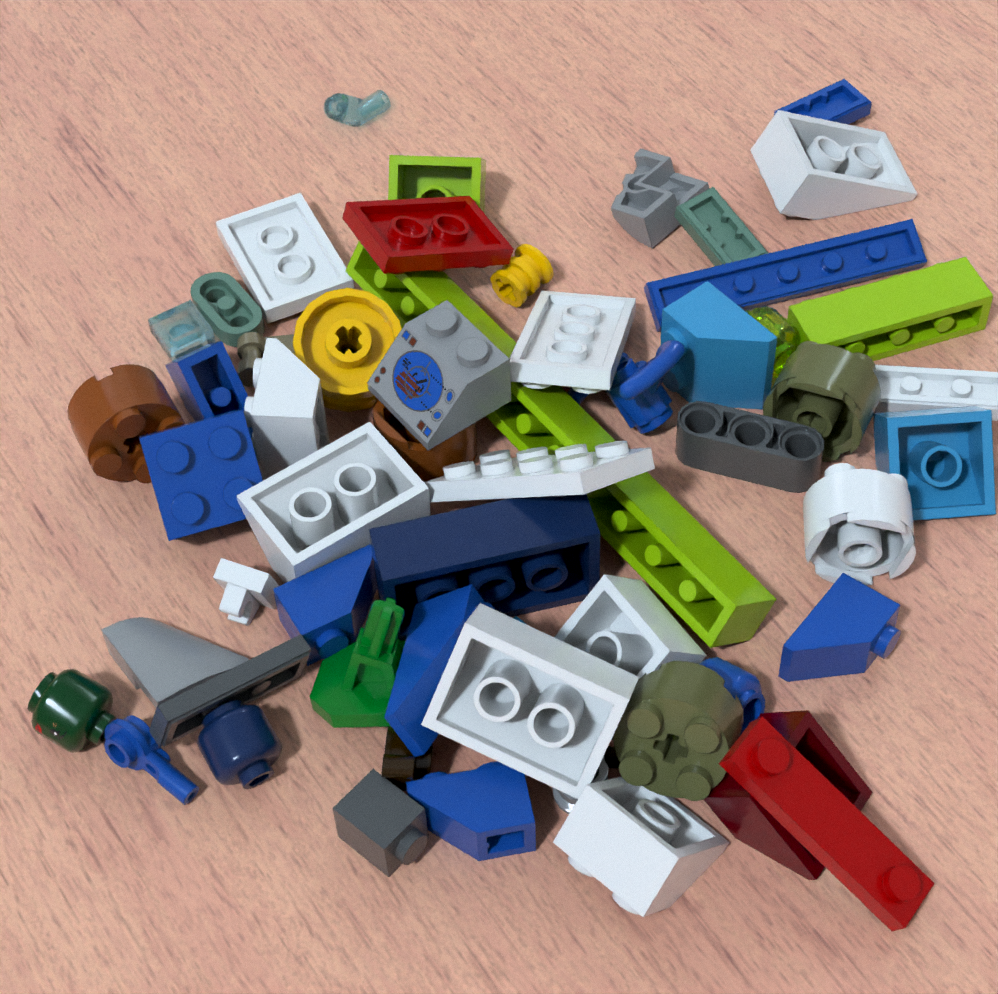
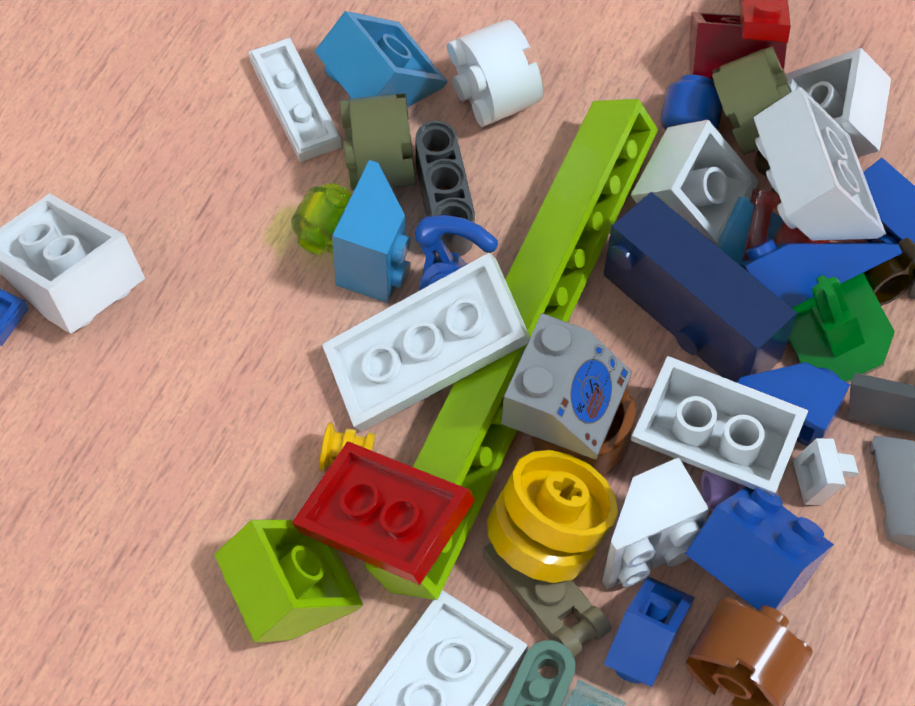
camera: 125 degrees left, 10 degrees up
(540, 474) = (616, 264): white plate -> none
(651, 197) = (167, 396): light grey slope -> none
(717, 229) = (198, 315): sand green plate -> none
(800, 269) = (224, 247): blue tile -> none
(841, 633) = (587, 64): blue slope -> none
(898, 311) = (235, 147): lime brick -> none

